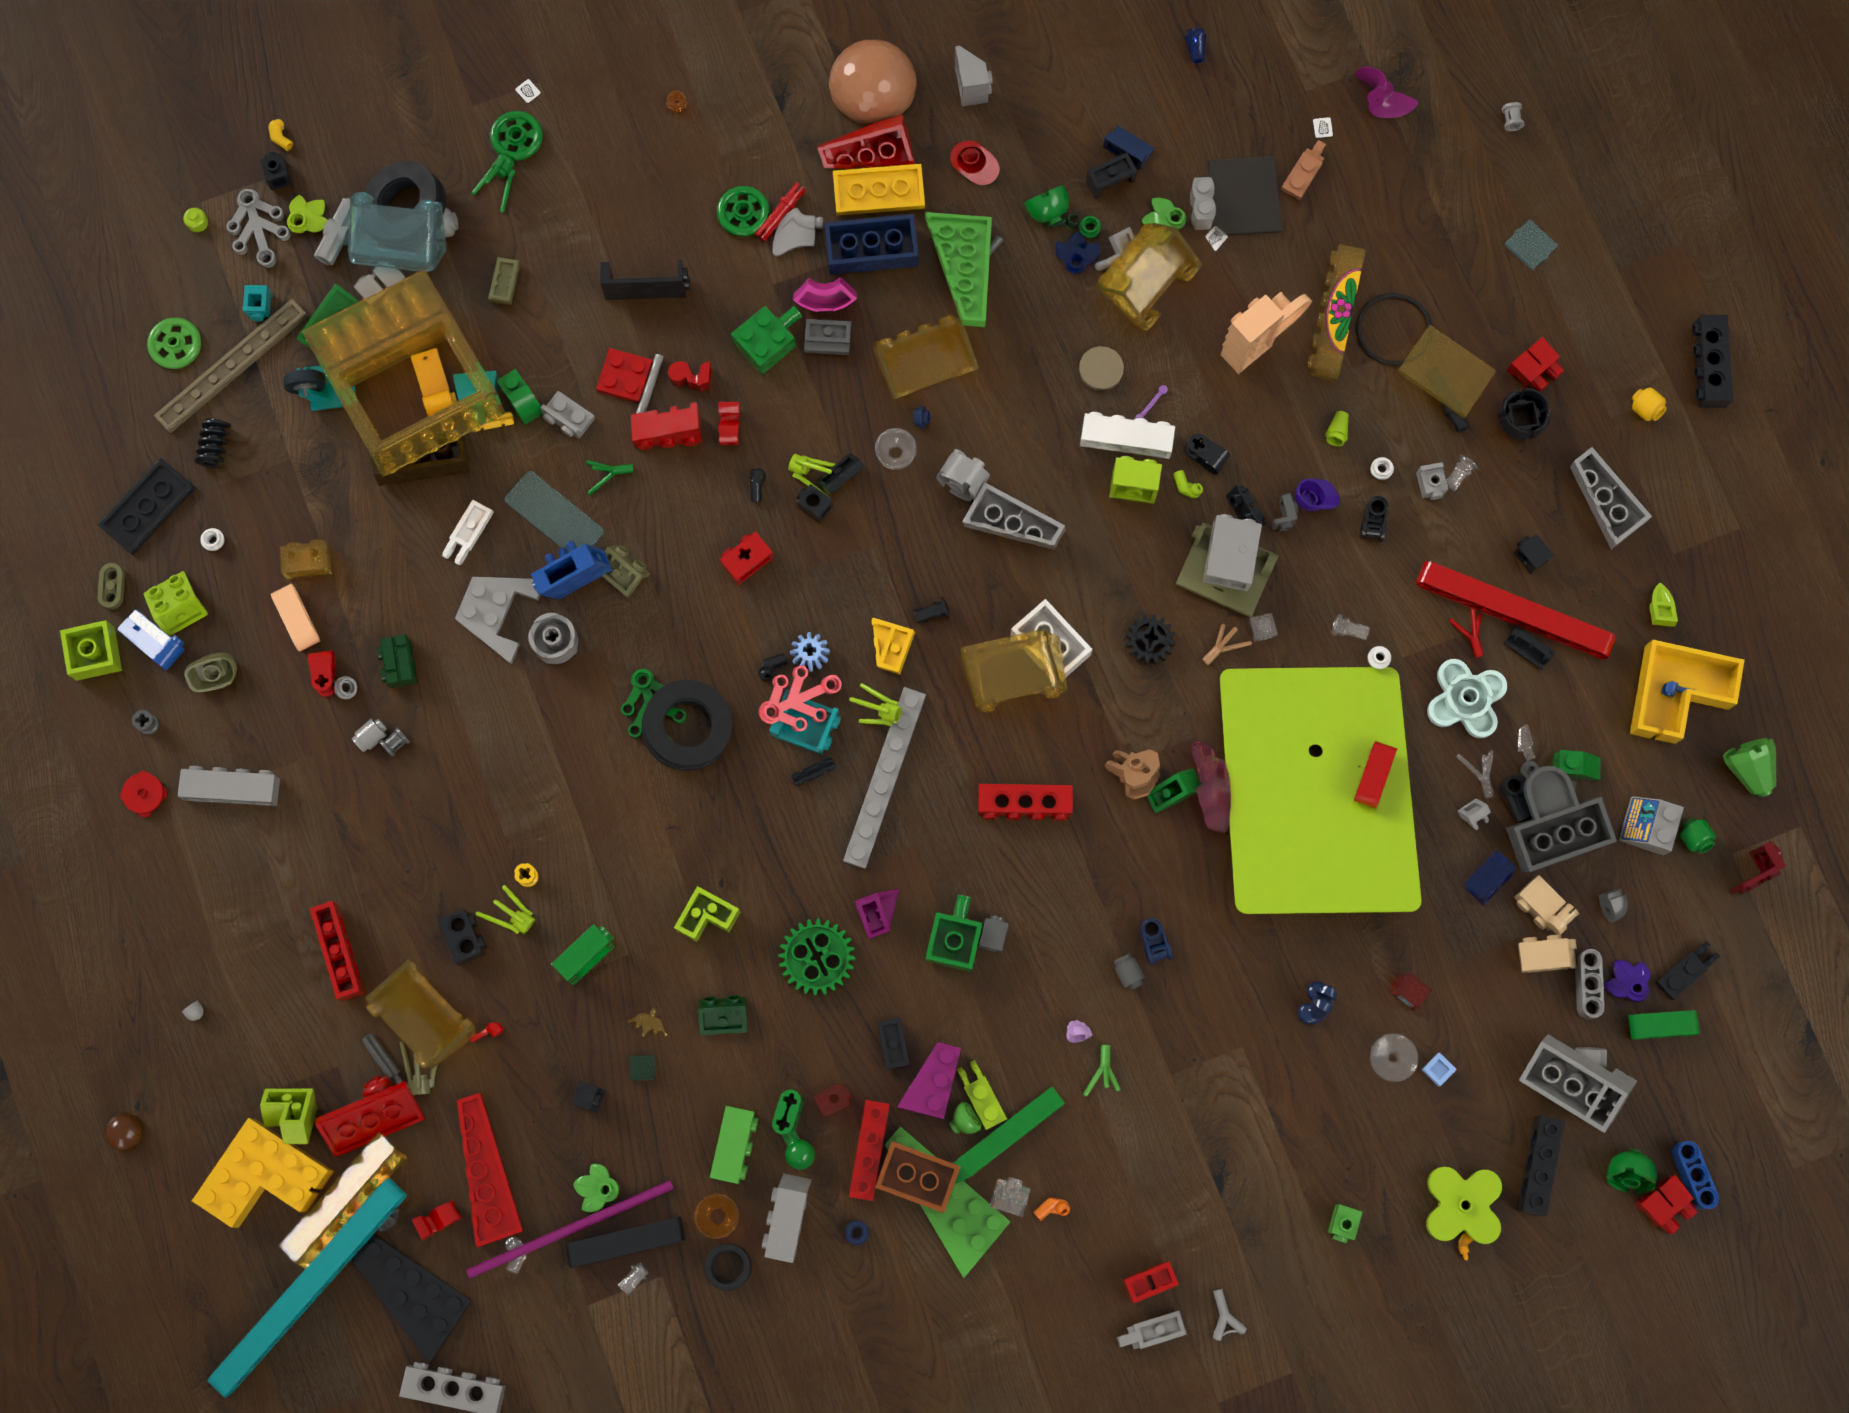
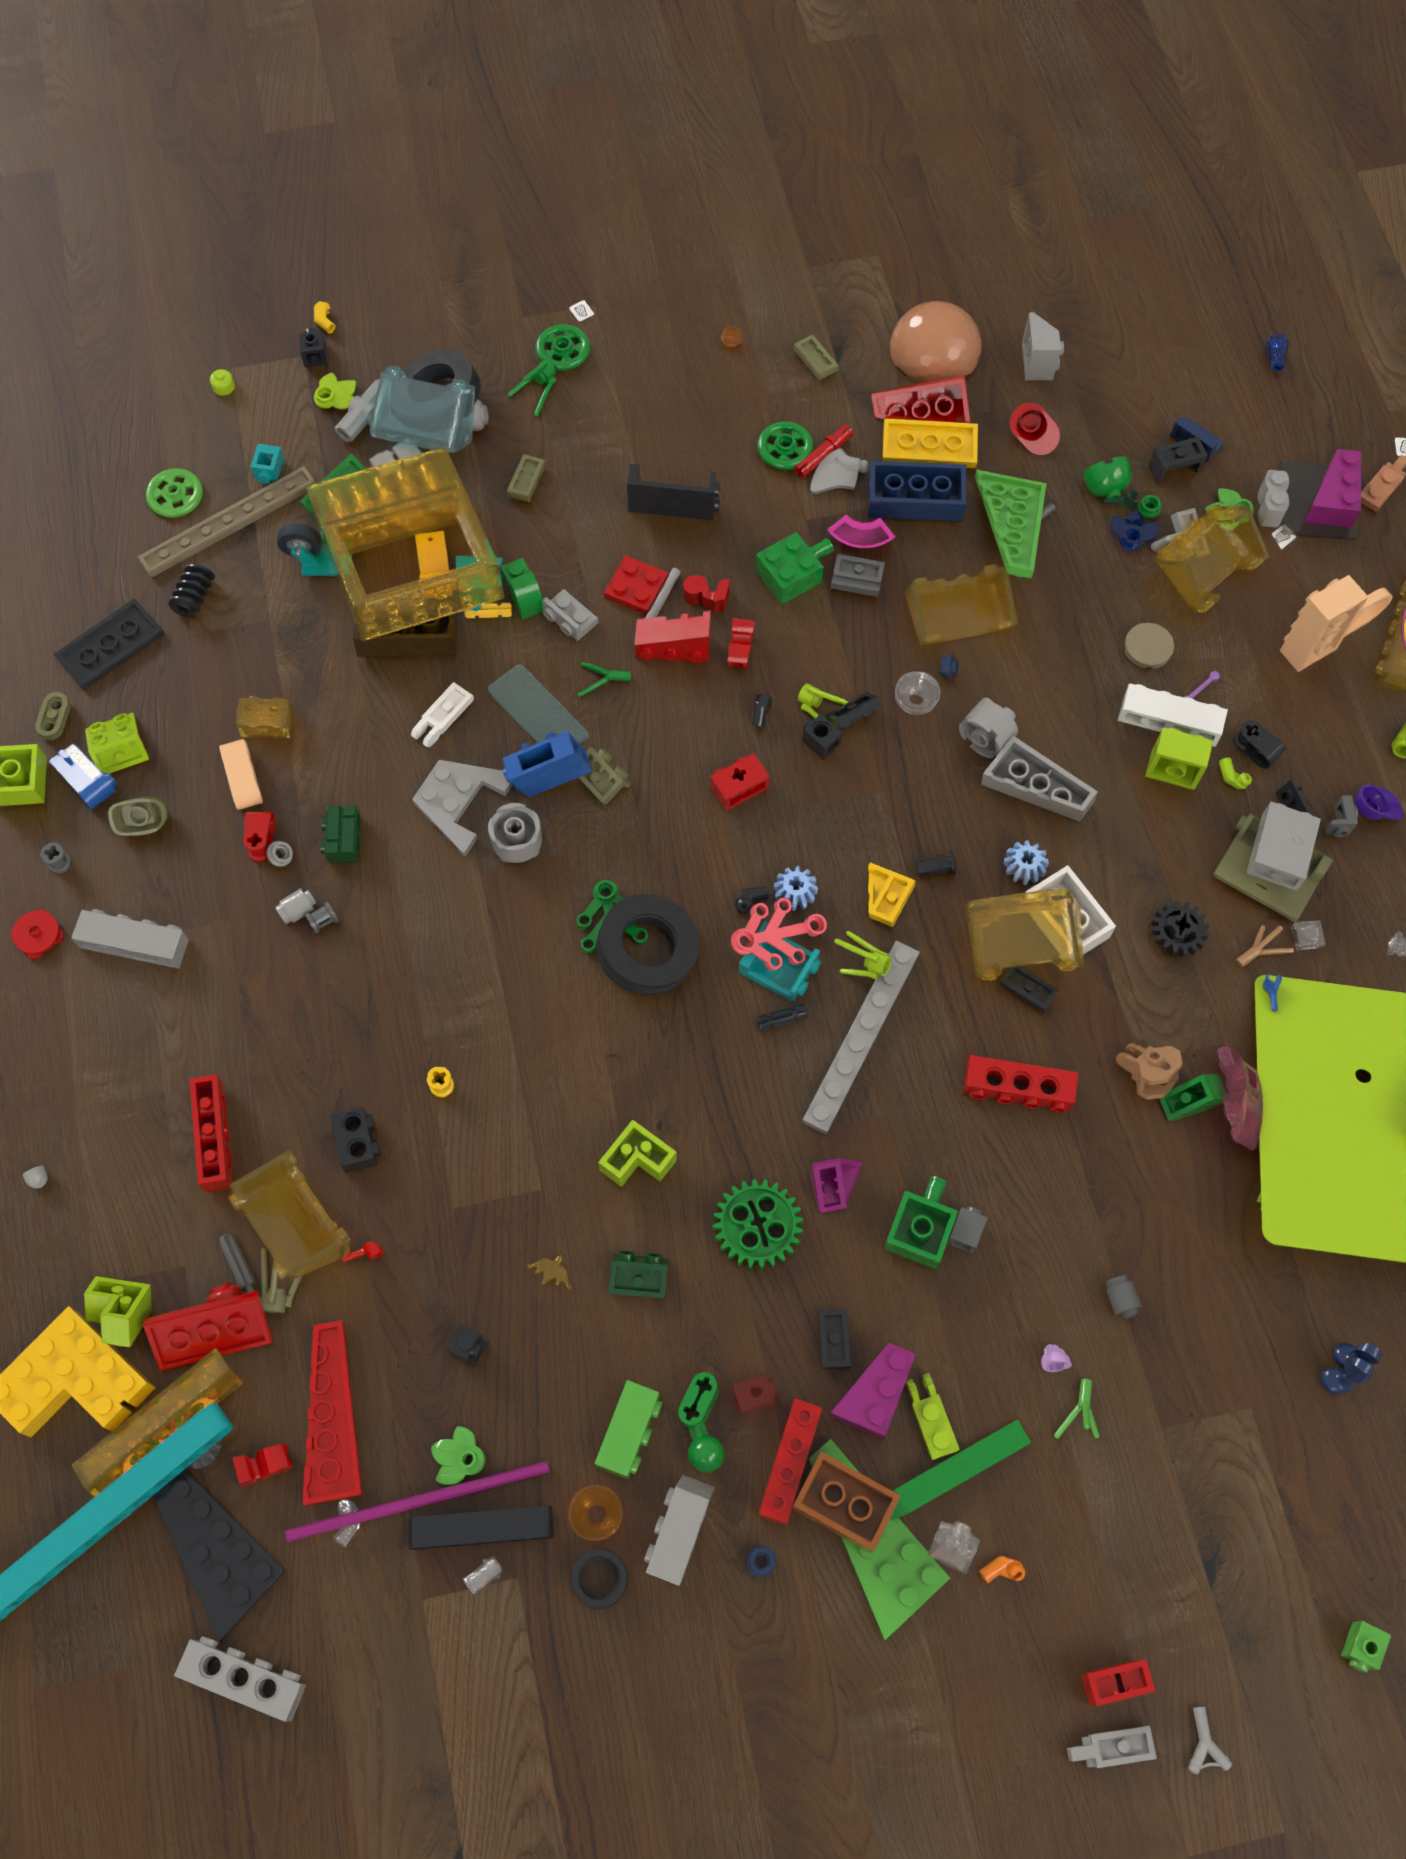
camera: 10 degrees right, 10 degrees down
(207, 535) = (169, 679): white plate -> none
(255, 225) = (279, 373): light grey plant -> none
(521, 920) = (425, 1132): lime plant -> none
(584, 954) = (490, 1178): green window -> none
(642, 1067) = (535, 1321): clear green plate -> none
(760, 112) = (815, 357): none -> olive plate
(965, 1119) = (909, 1443): bright green brick -> none
(1012, 589) = (1023, 870): none -> light blue gear
(1025, 713) = (1029, 987): none -> black plate
(1155, 943) = (1157, 1268): dark blue piece -> none
(1234, 681) = (1272, 988): none -> blue hand
(1262, 188) = (1339, 492): none -> magenta wedge

